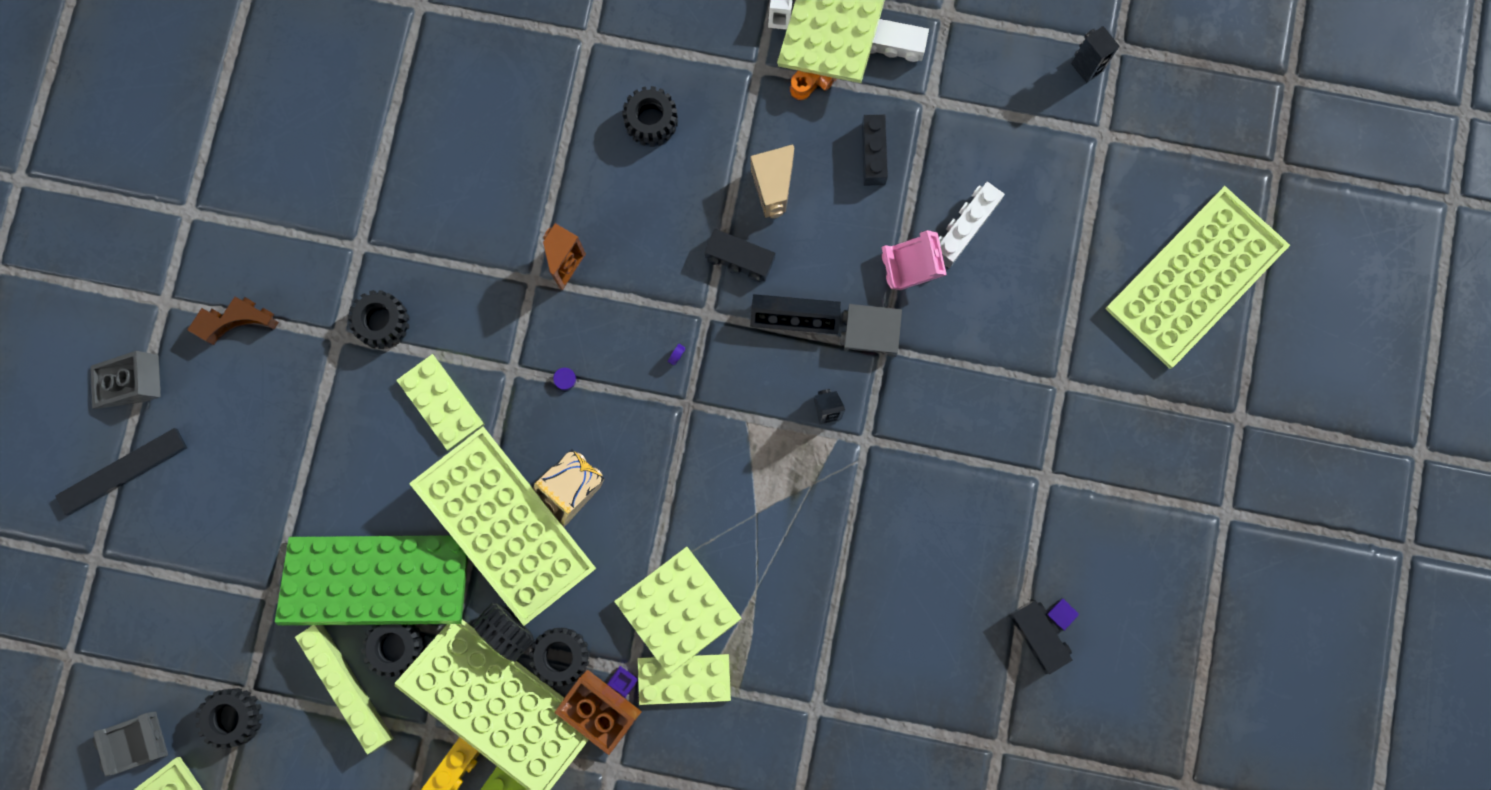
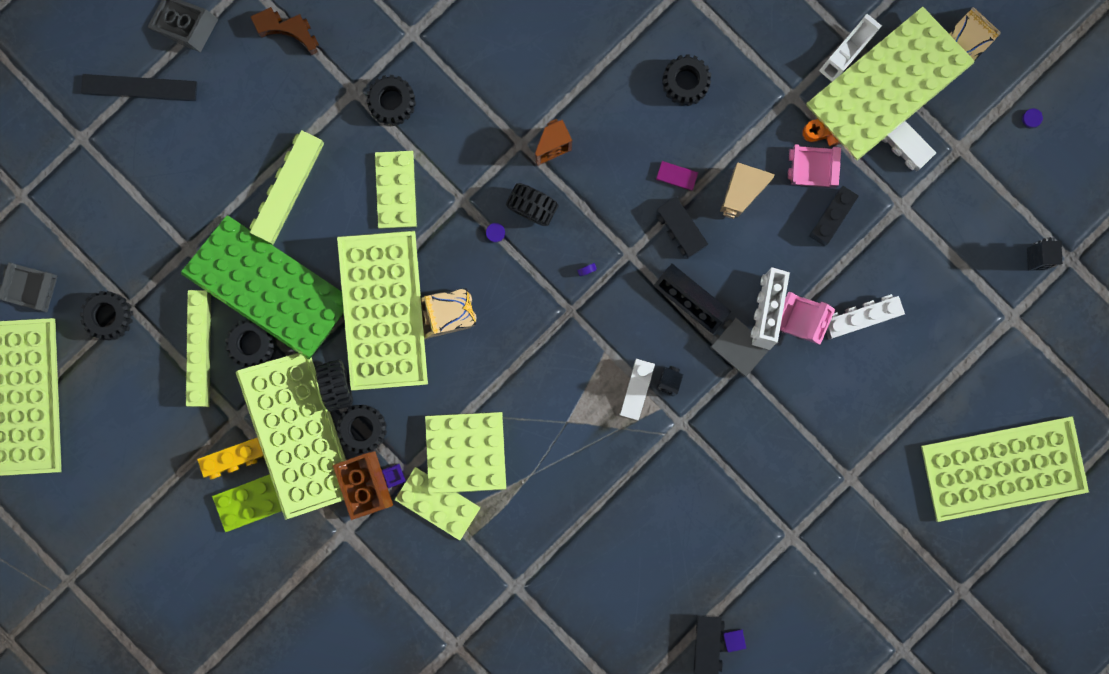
camera: 30 degrees right, 5 degrees up
(331, 470) = (287, 187): none -> yellowish green brick
(581, 326) = (532, 204): none -> black tyre
(702, 211) = (677, 176): none -> magenta tile
(802, 435) = (637, 389): none -> white slope
(825, 117) = (814, 166): none -> bright pink panel
(876, 273) = (770, 309): none -> white brick

